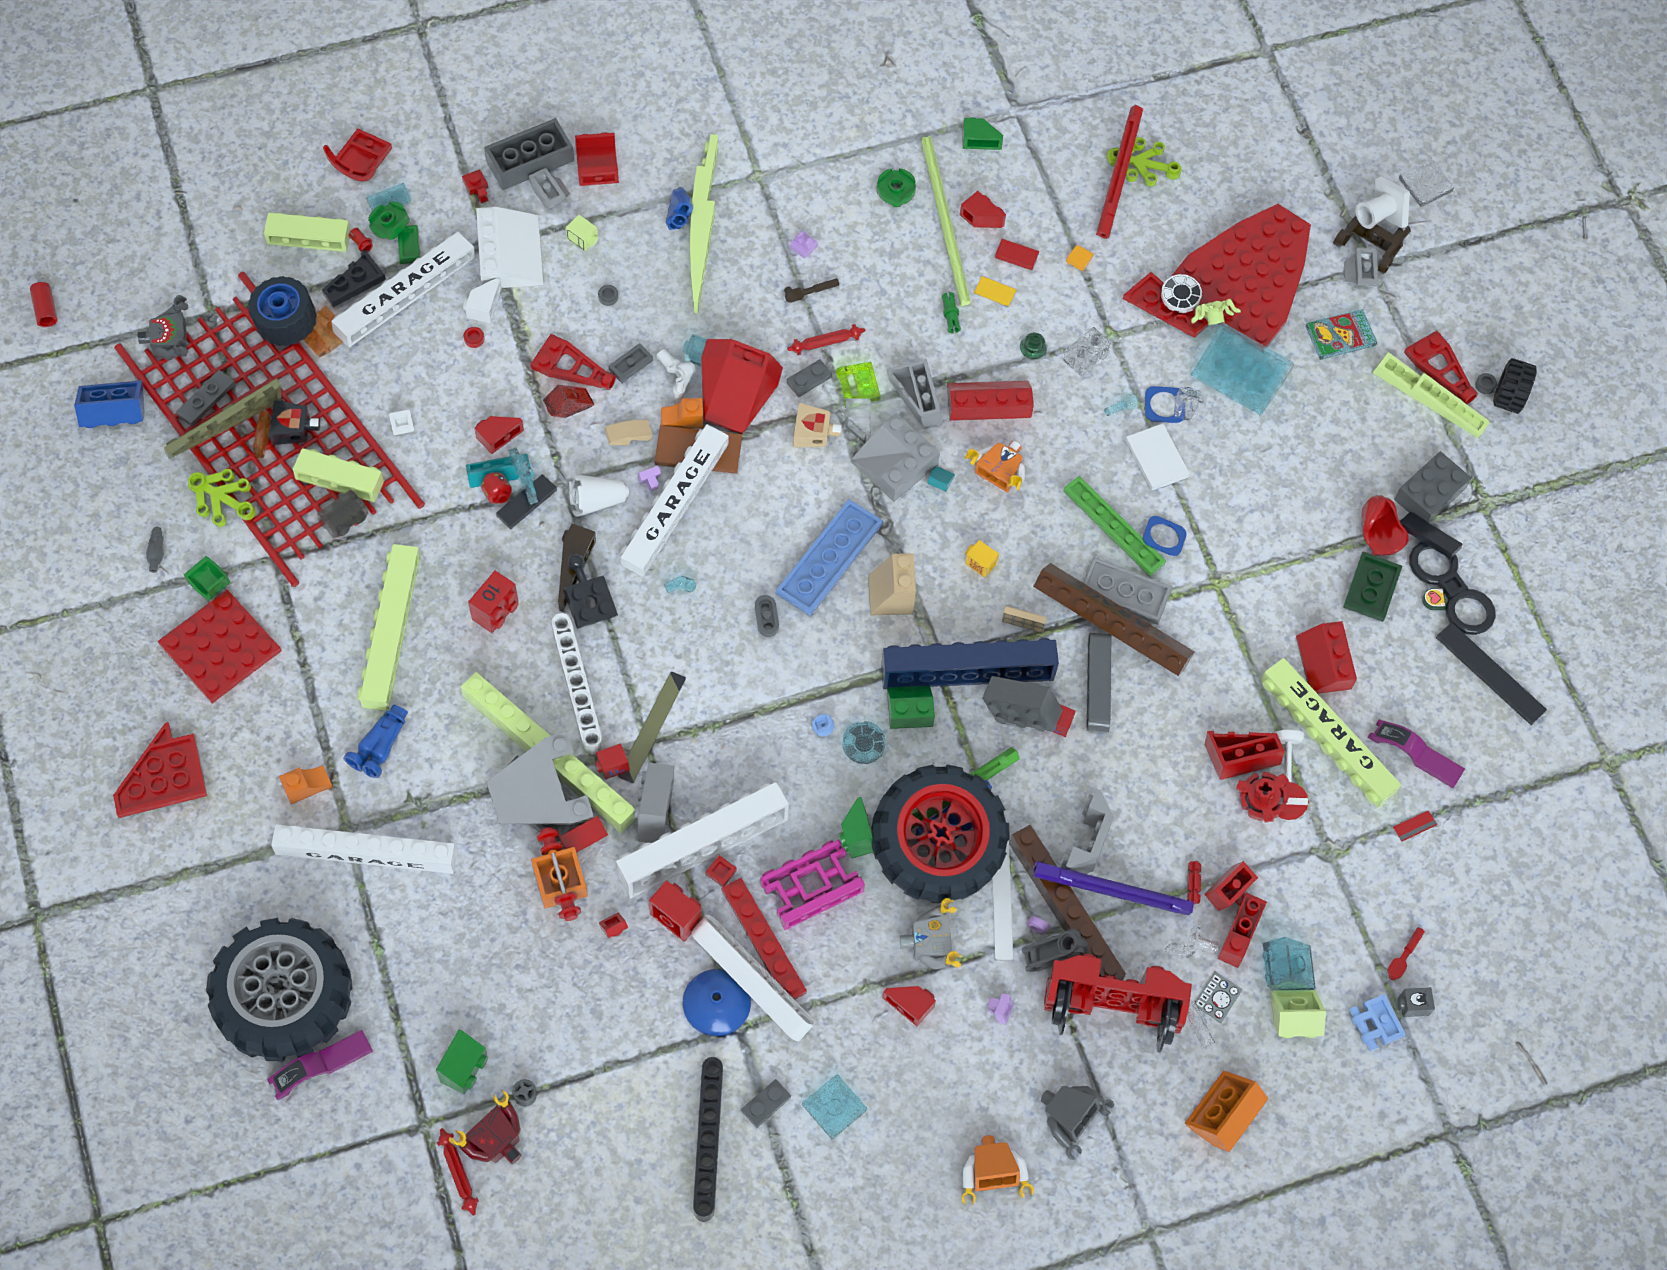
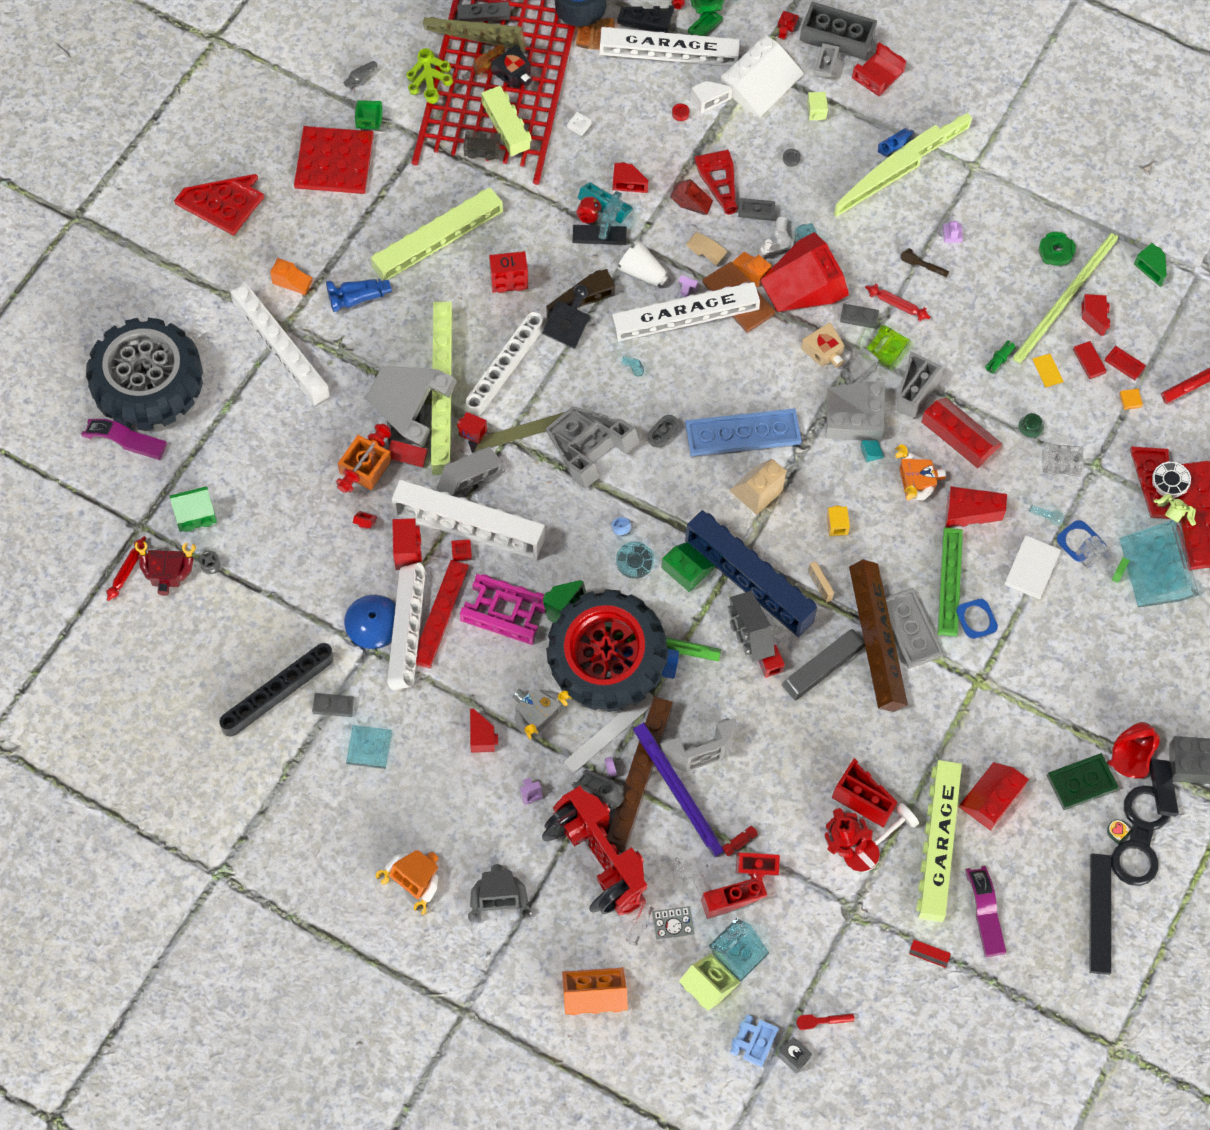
camera: 50 degrees right, 0 degrees up
(711, 681) = (585, 438): none -> light grey wedge
(1044, 233) = (1125, 363): none -> red tile
(1066, 450) = (974, 506): none -> red wedge
(1221, 398) = (1120, 570): none -> bright green tile

